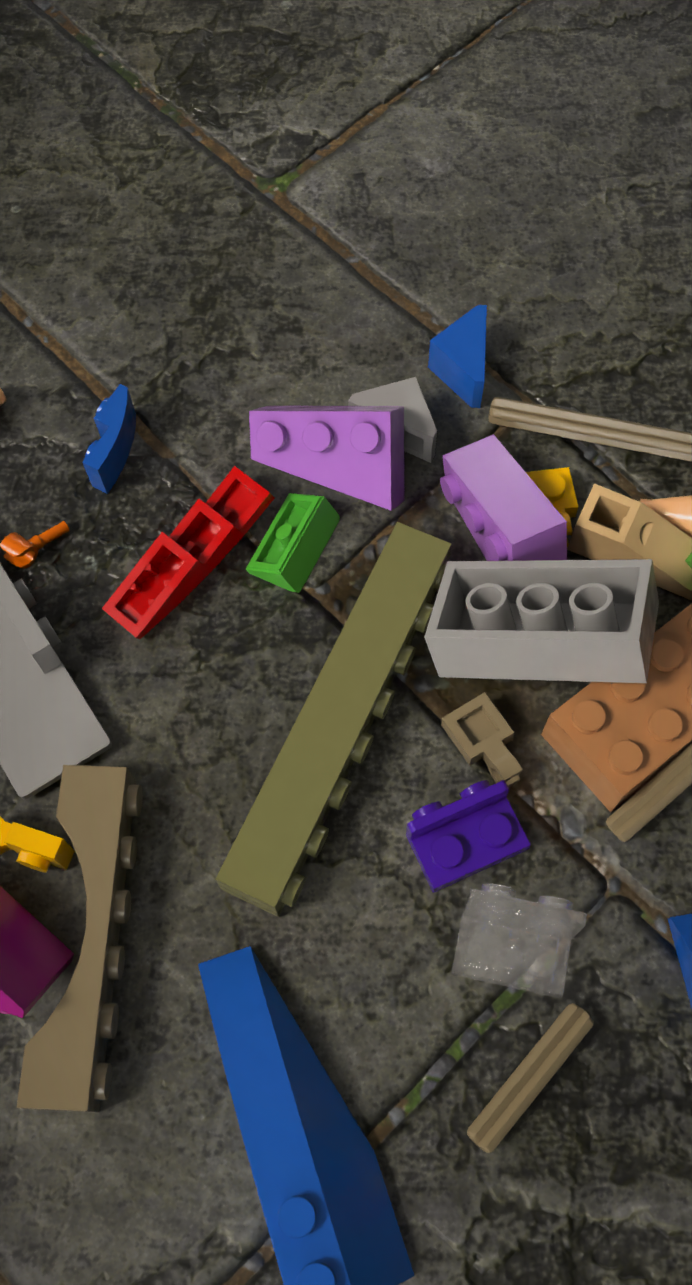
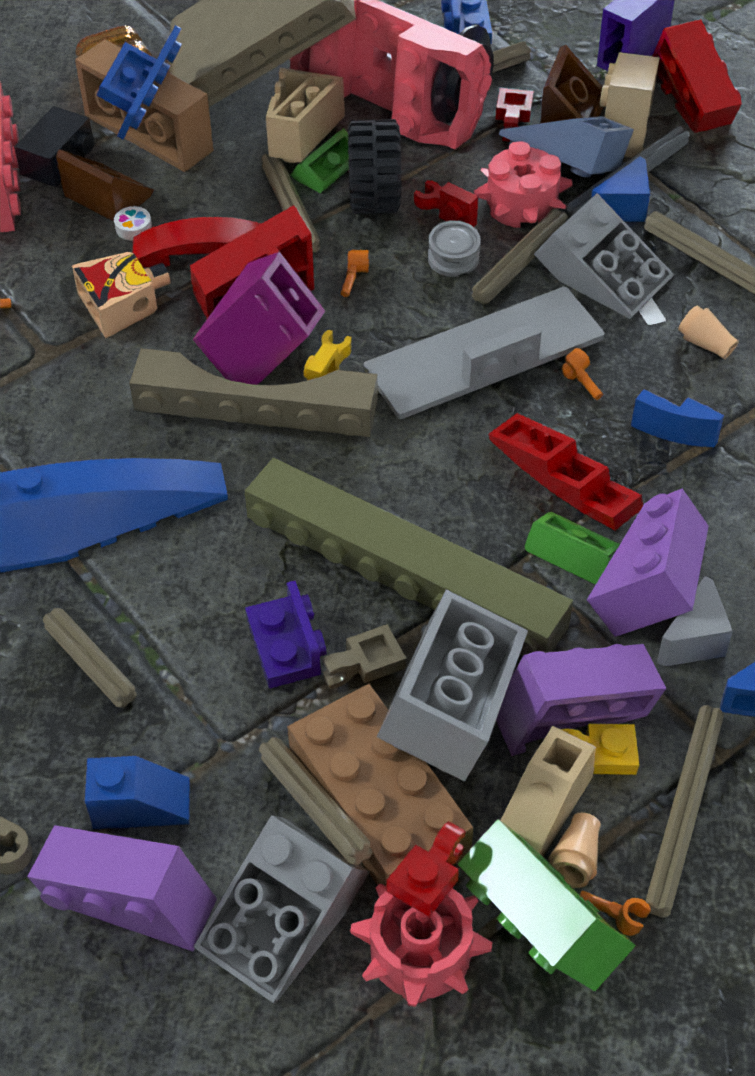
camera: 95 degrees right, 15 degrees down
(516, 939) = (190, 652): clear bracket -> none

